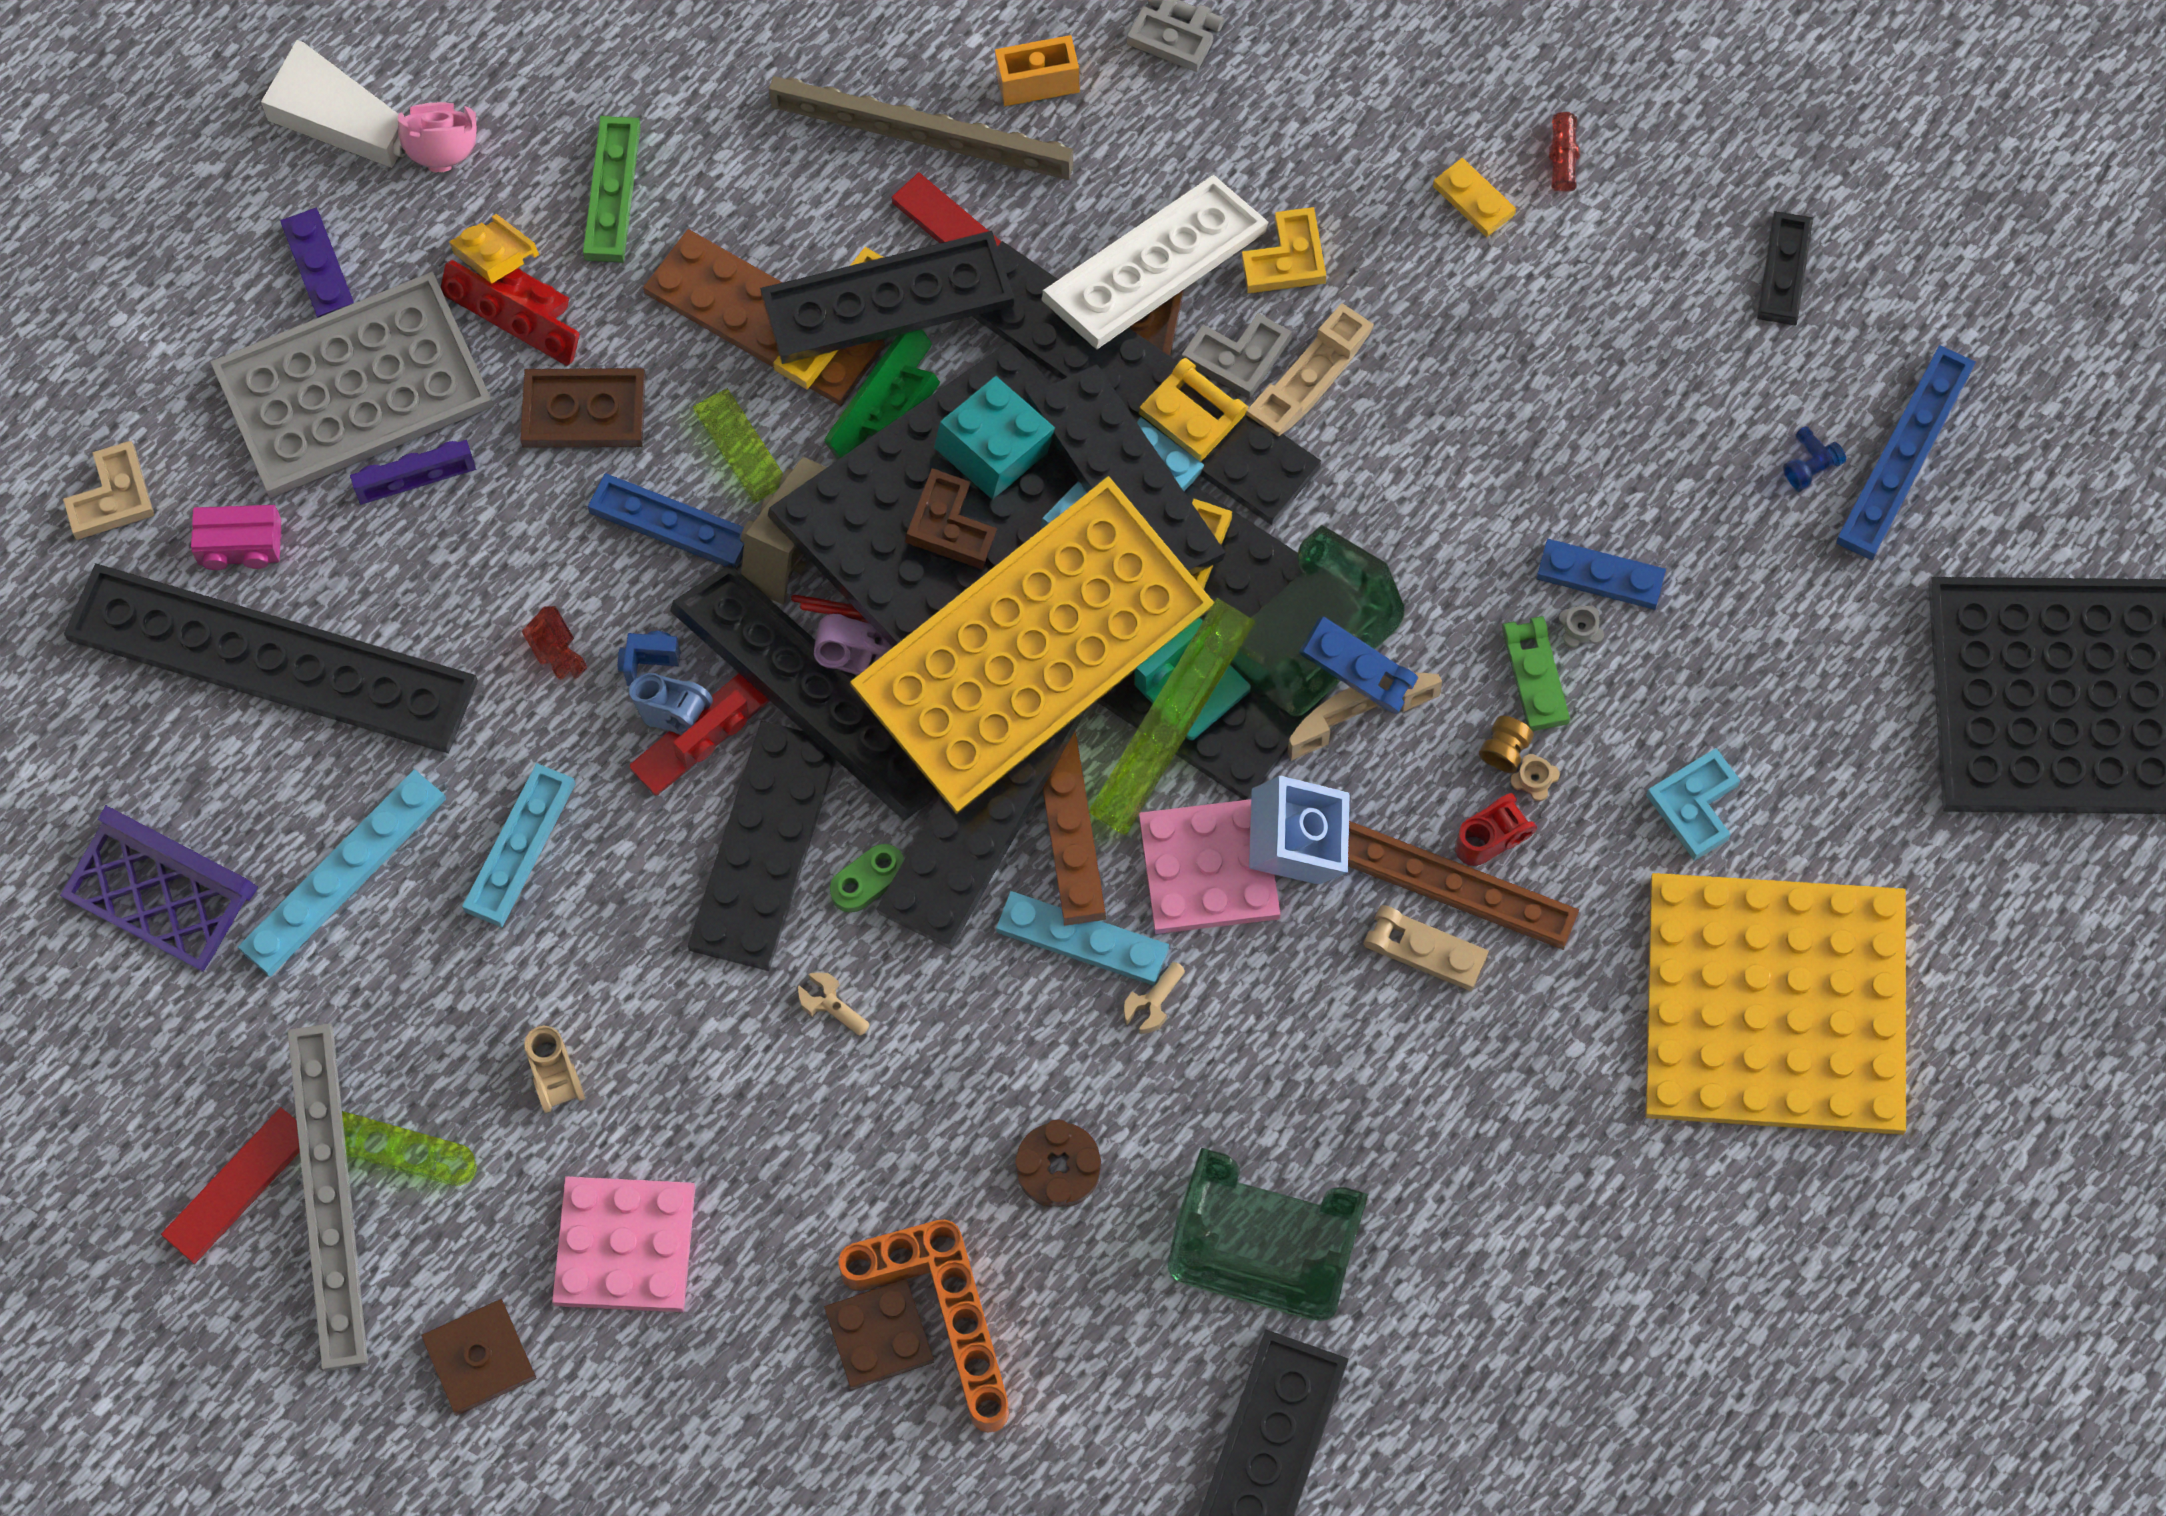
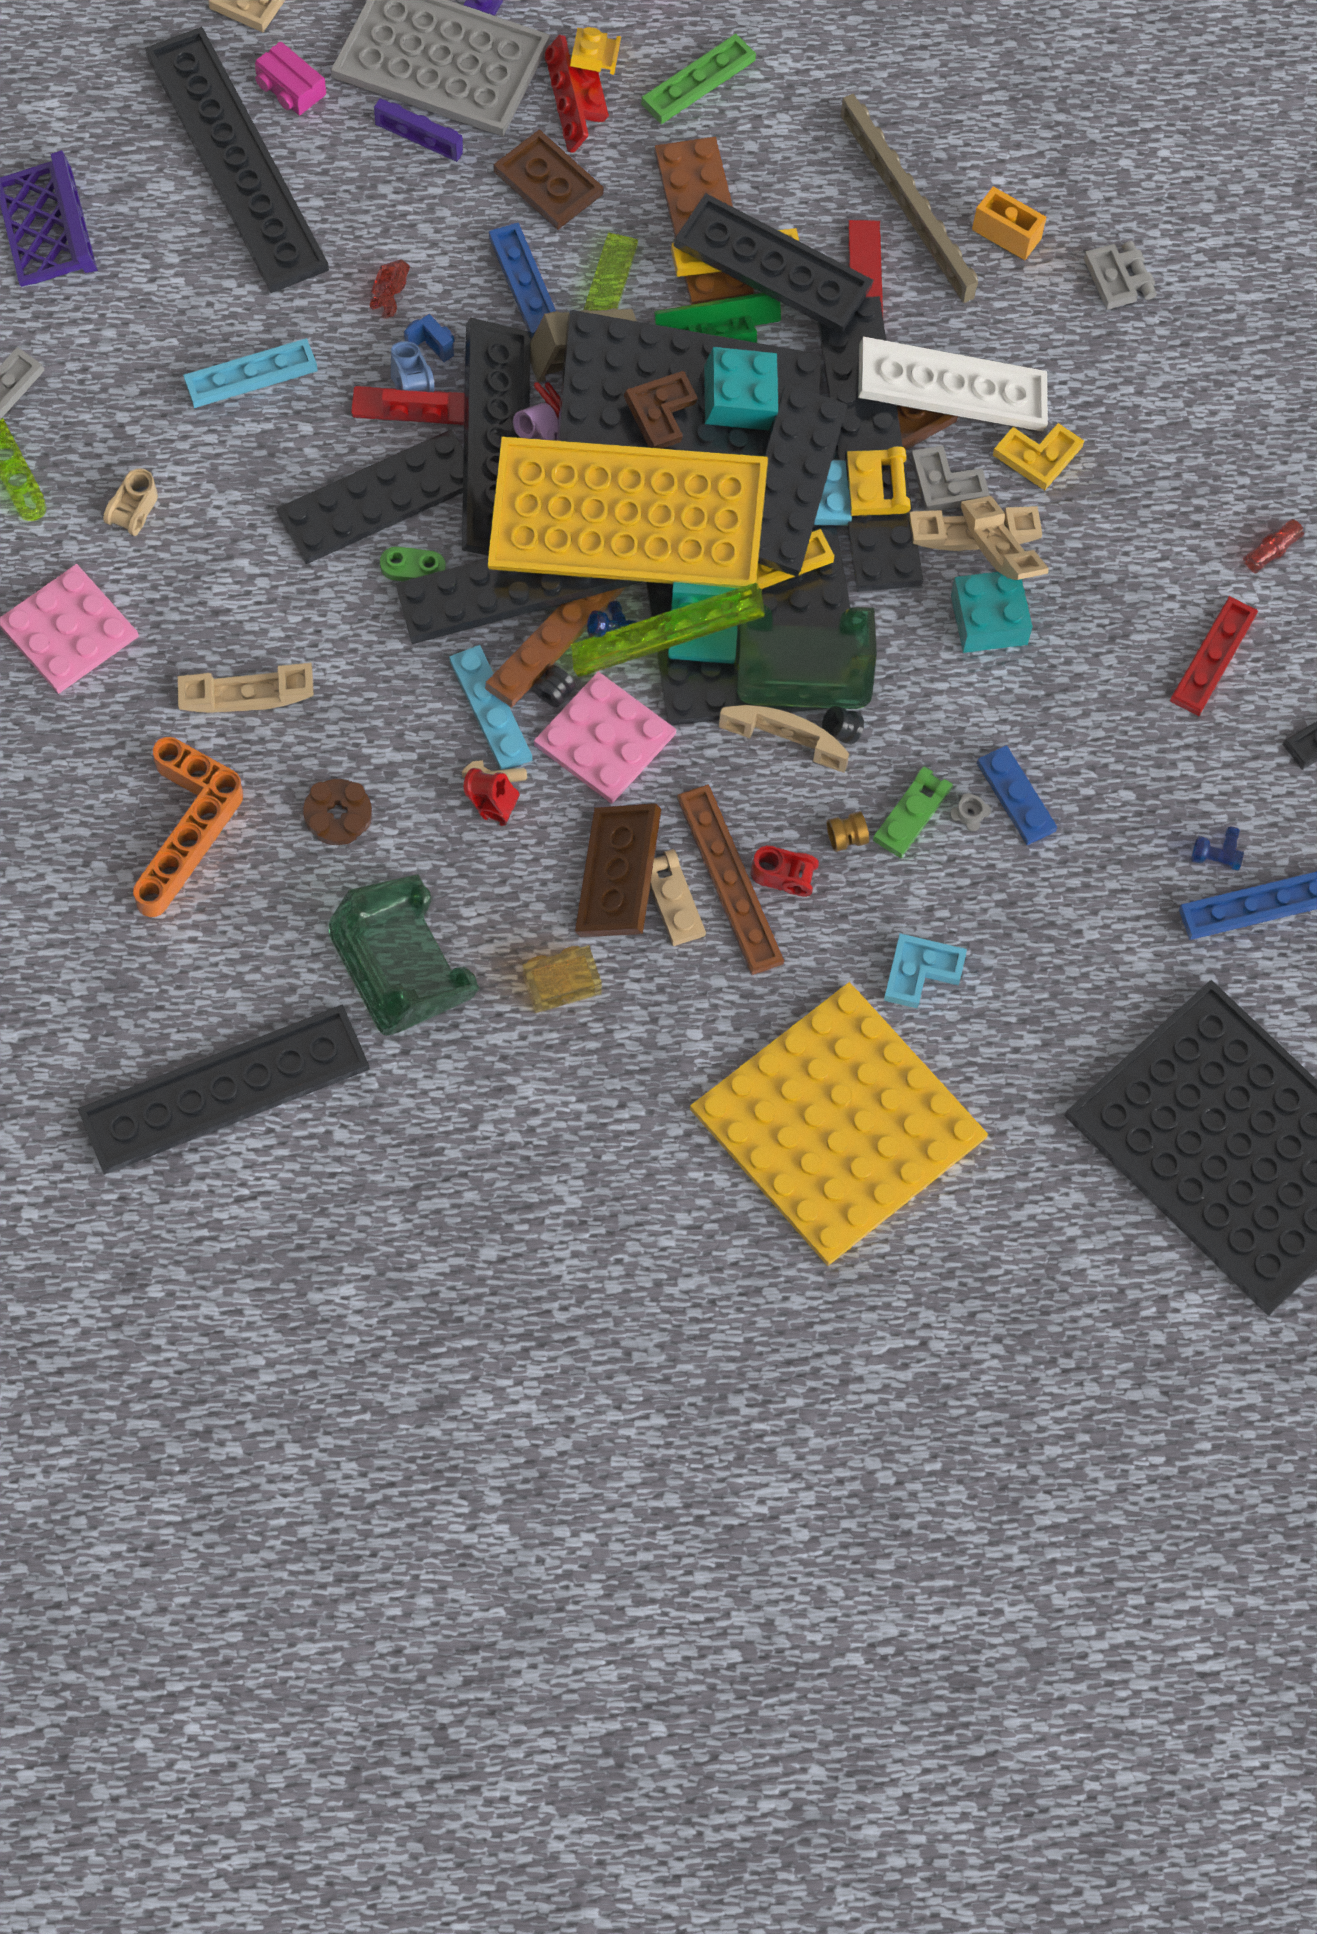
camera: 40 degrees right, 0 degrees up
(342, 872) = (146, 302): medium azure plate -> none
(831, 1003) = (317, 611): tan bar -> none
(856, 1136) = (247, 692): none -> tan slope
(879, 1334) = (141, 804): reddish brown plate -> none
(1099, 767) = (599, 623): none -> piece
(1118, 863) = (554, 686): none -> black wheel
(1182, 1014) = (491, 794): none -> red piece
(1299, 830) = (669, 760): light blue brick -> none
(1354, 369) = (997, 543): none -> tan slope
(1357, 664) = (803, 699): blue plate -> none
(1361, 971) = (618, 870): none -> reddish brown plate
(1406, 432) = (990, 612): none -> teal brick
(1407, 649) = (843, 724): none -> black wheel
(1420, 1114) = (561, 978): none -> clear yellow brick
(1474, 197) = (1189, 523): yellow plate -> none
(1537, 766) = (848, 858): tan plate -> none
(1621, 295) = (1214, 656): none -> red tile

